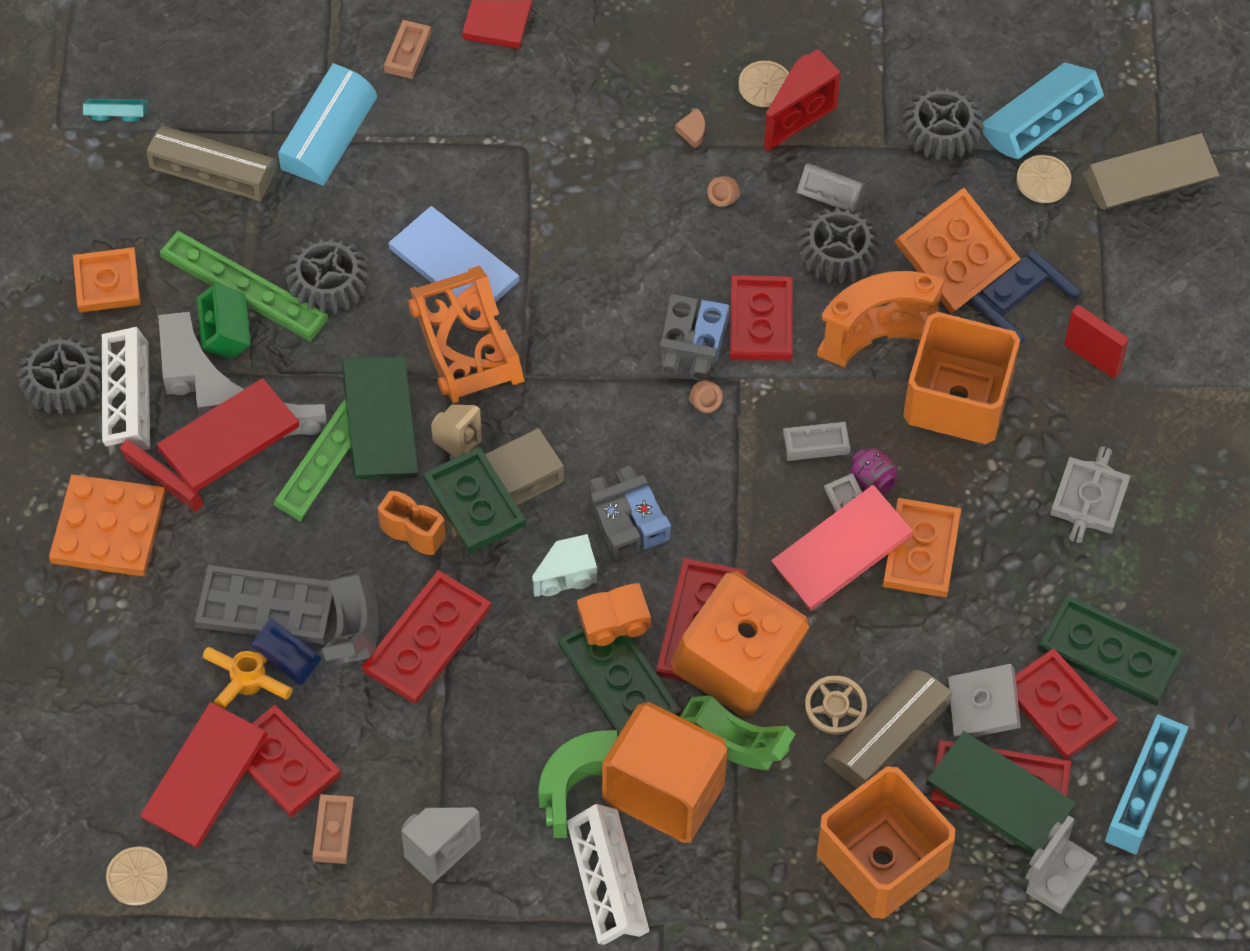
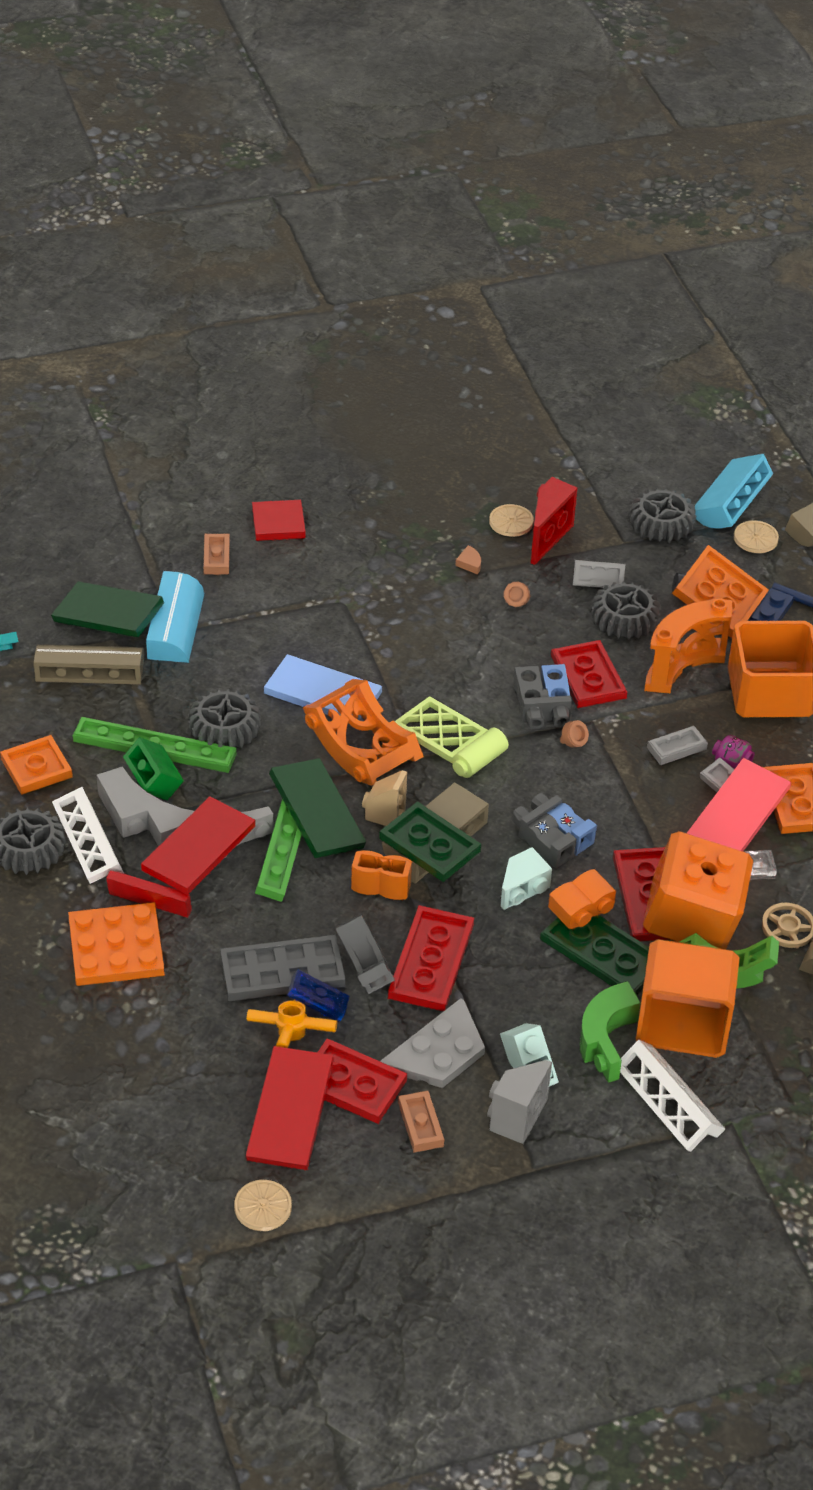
camera: 20 degrees left, 15 degrees down
(255, 97) = (107, 609): none -> dark green tile
(391, 747) = (440, 1048): none -> light grey wing
(478, 784) = (527, 1046): none -> light aqua slope
(585, 387) = (473, 751): none -> yellowish green piece
(836, 621) = (763, 865): none -> clear plate

